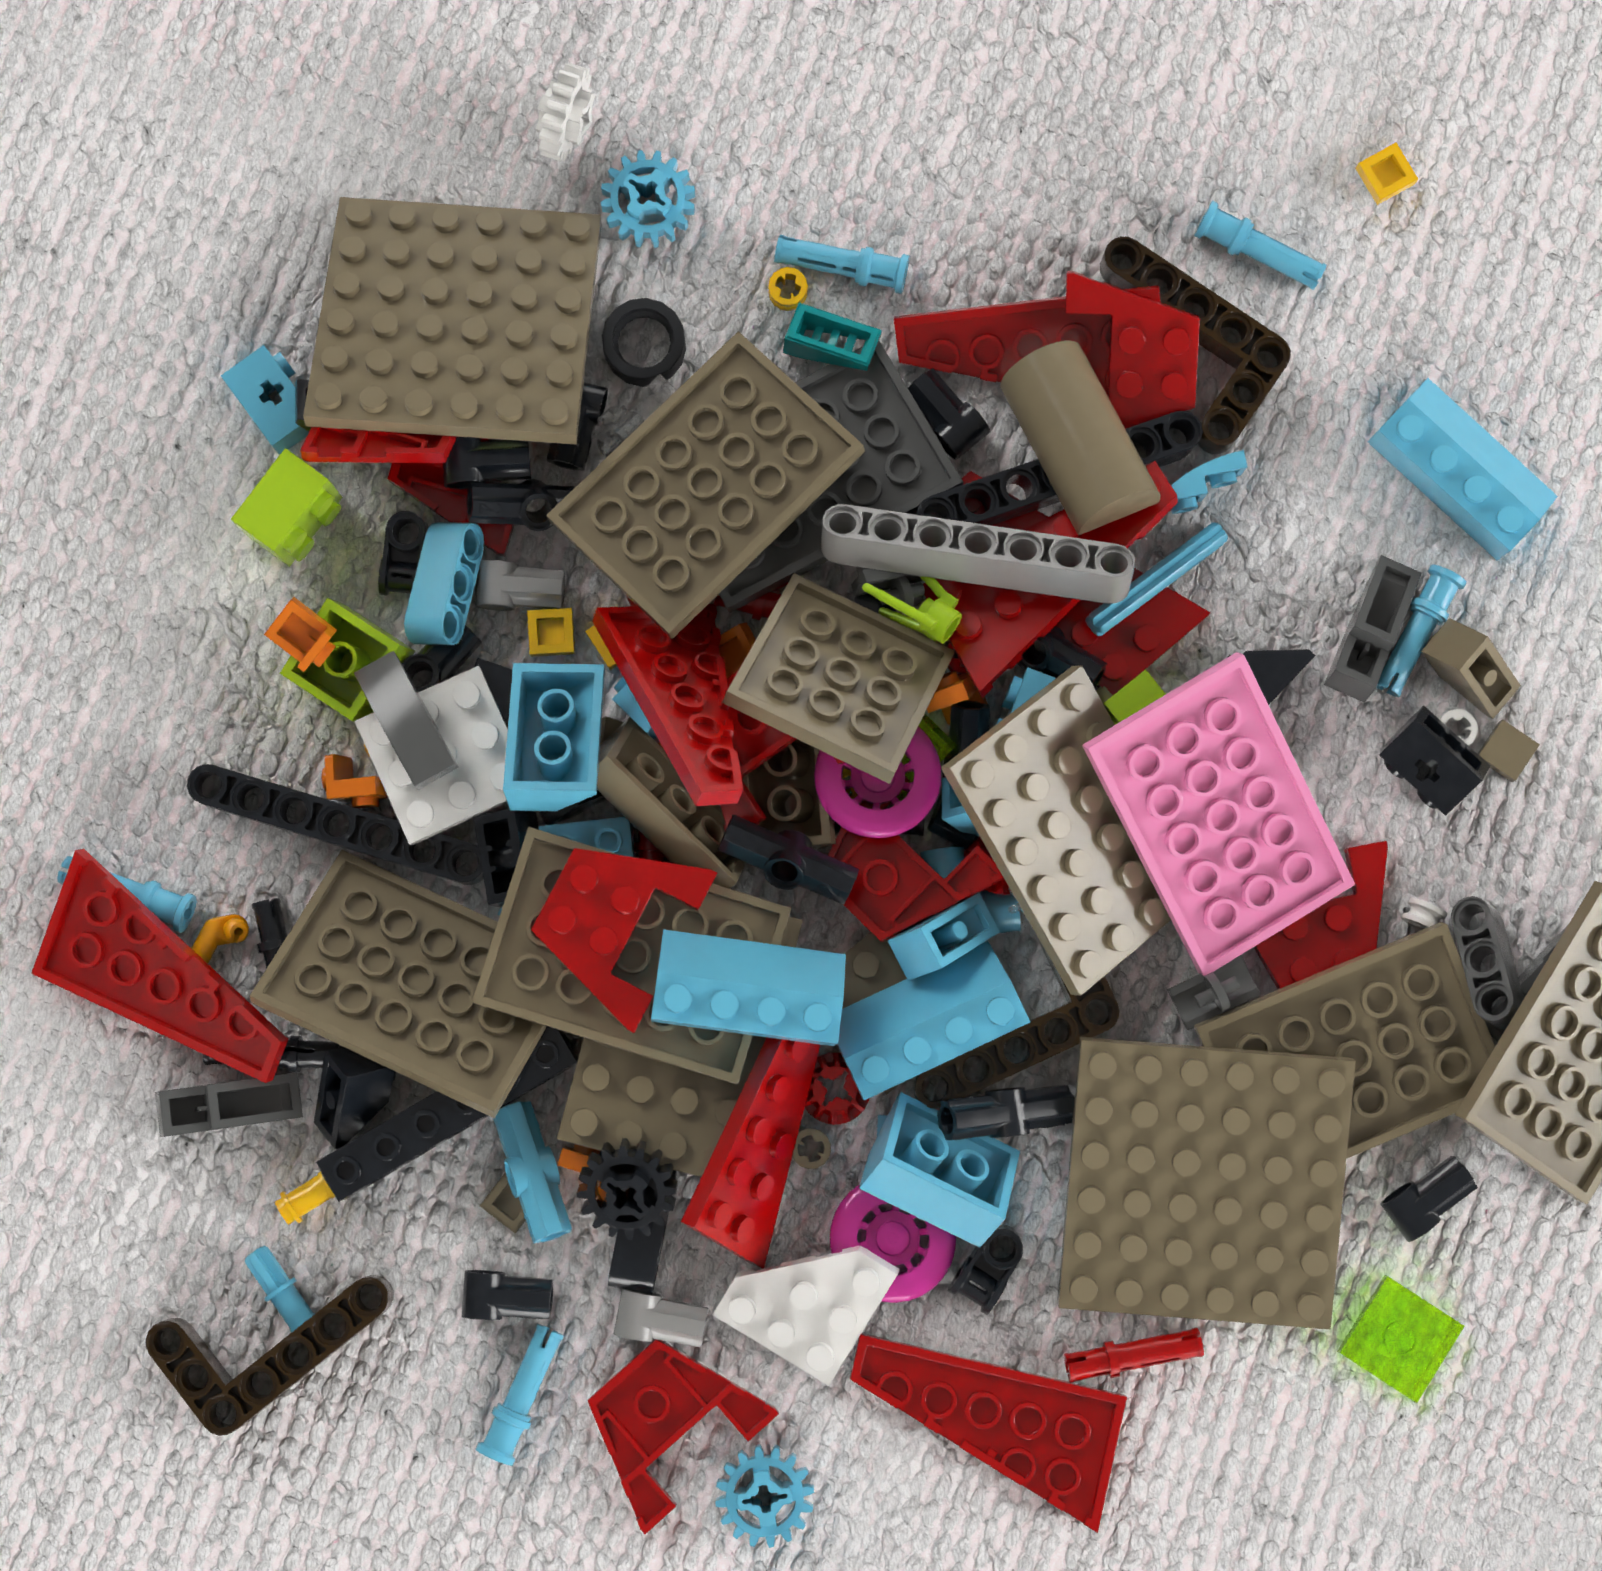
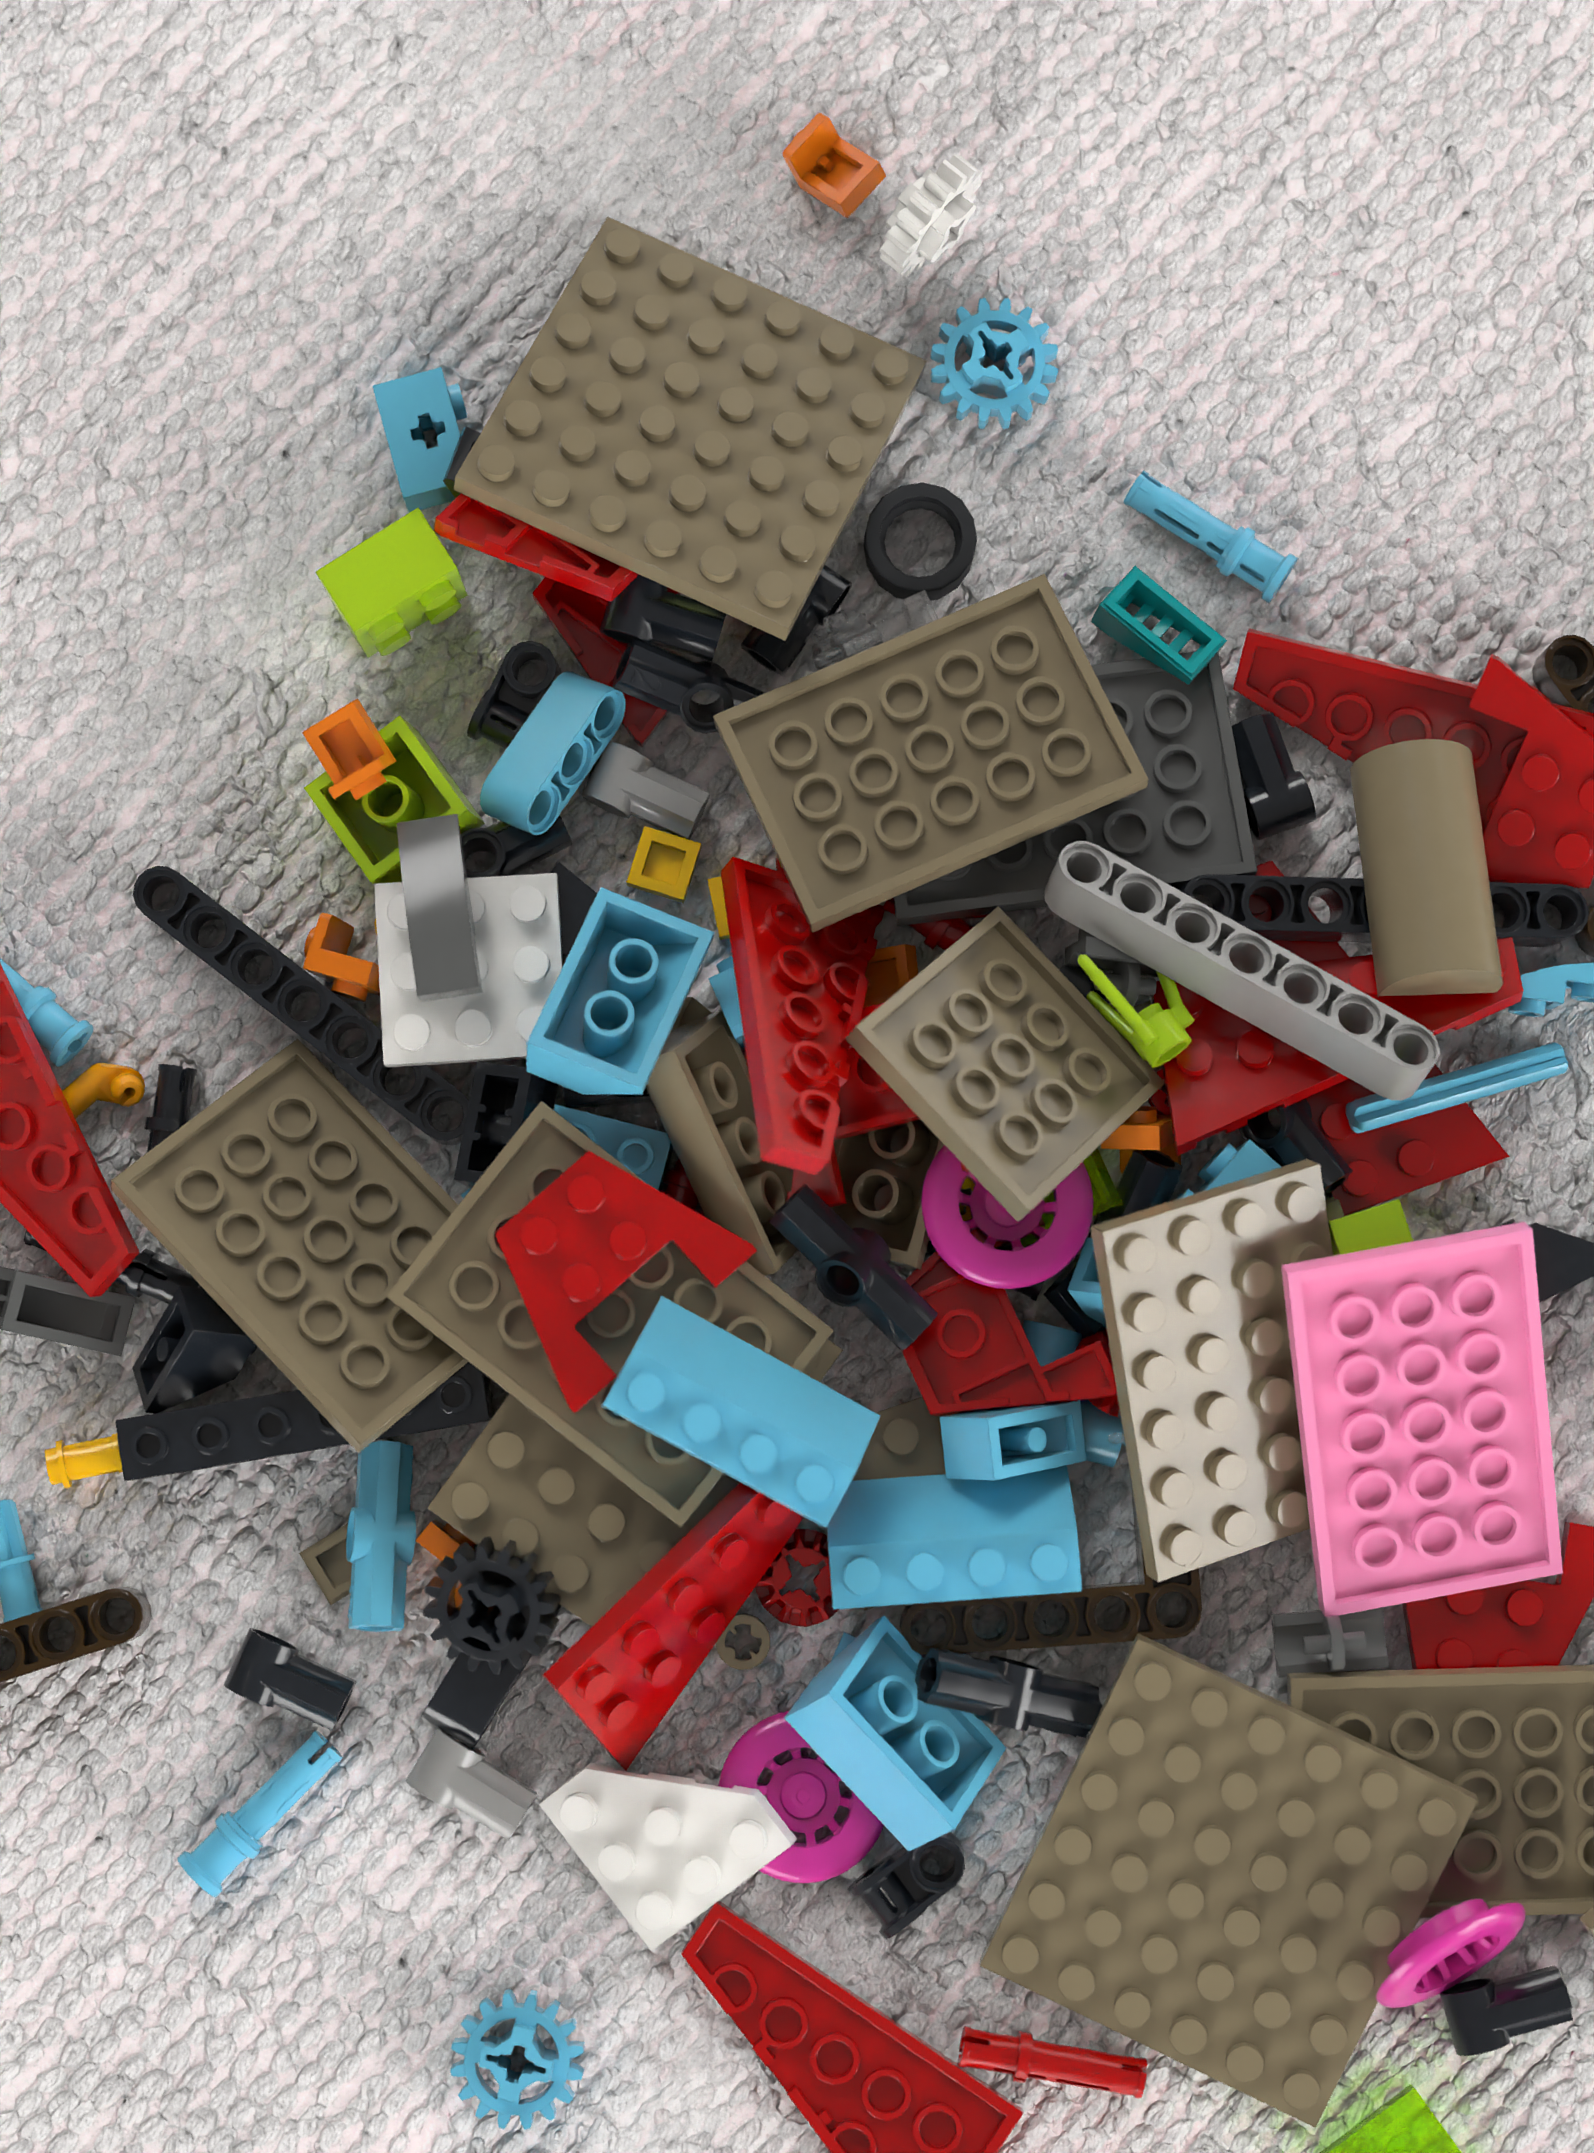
camera: 20 degrees right, 0 degrees up
(483, 104) = (831, 166): none -> orange bracket
(654, 1406) = (421, 1891): red wing -> none
(782, 275) = (1109, 541): yellow bush -> none
(1375, 1172) = (1448, 1950): none -> dark pink wheel

